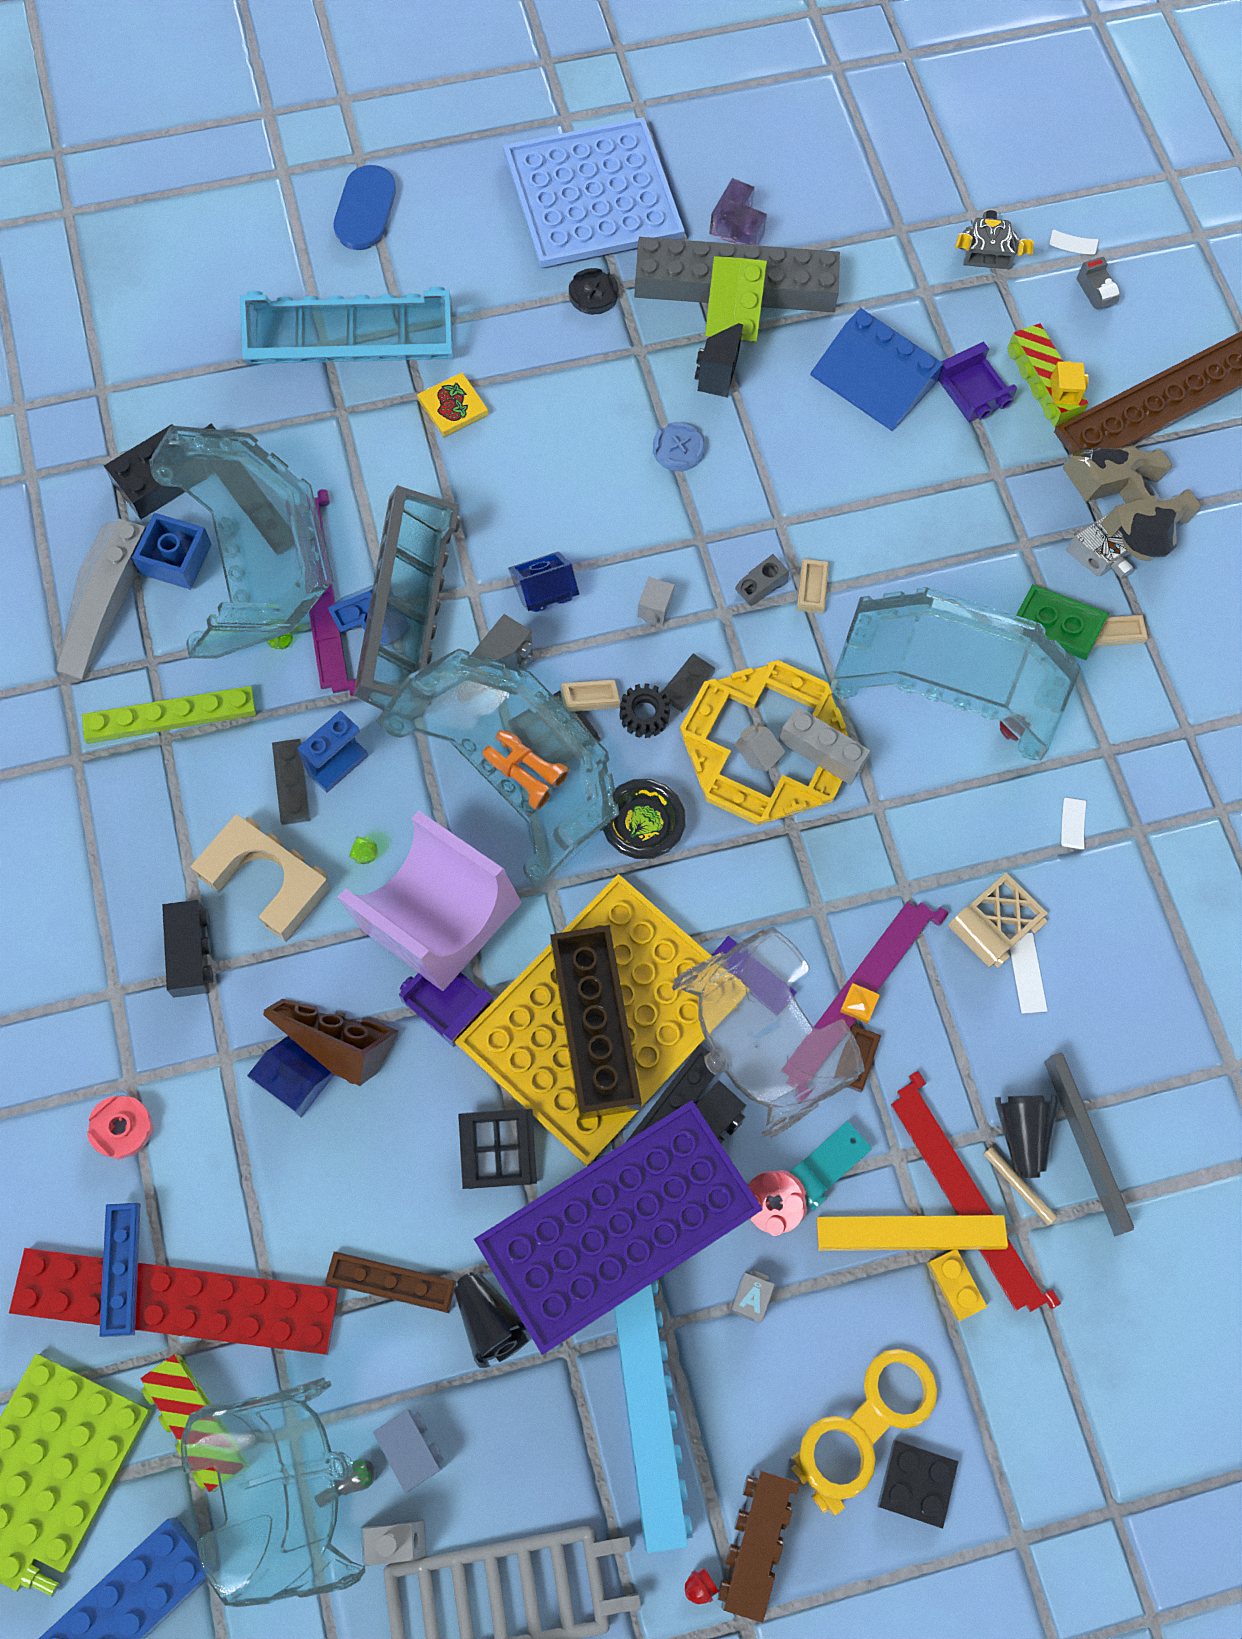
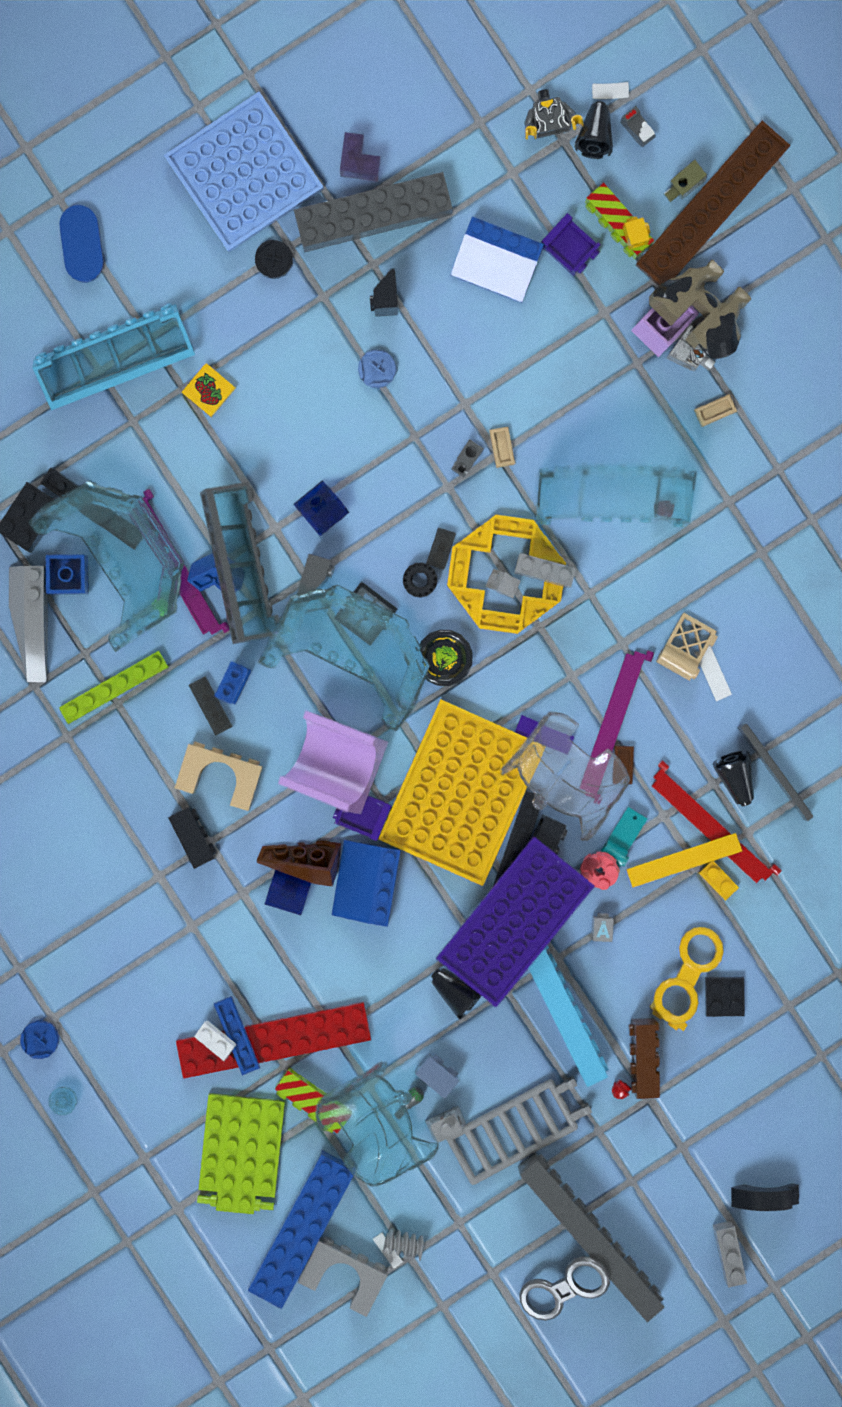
camera: 15 degrees left, 20 degrees up
(83, 1264) = (215, 1040): none -> white plate
(102, 1127) = (189, 960): coral plate -> none
(363, 850) = (275, 737): clear neon green plate -> none
(391, 1282) = (392, 988): reddish brown tile -> none
(414, 1102) = (366, 882): none -> blue slope
(497, 1148) = (426, 893): black piece -> none
(538, 791) = (351, 644): orange piece -> none
(590, 695) = (381, 581): tan tile -> none
(595, 1022) = (459, 803): dark brown brick -> none
(655, 601) = (401, 498): light grey brick -> none
(735, 295) = (381, 241): lime slope -> none
(860, 1003) = (615, 731): light orange tile -> none
(1020, 1186) = (740, 809): tan bar -> none
(1042, 275) = (596, 134): none -> black cone
(1065, 620) = (674, 419): green tile -> none
(1066, 510) = (658, 333): none -> lavender slope
(1073, 823) = (718, 562): white sticker -> none
(1148, 353) = (692, 175): none -> olive torso

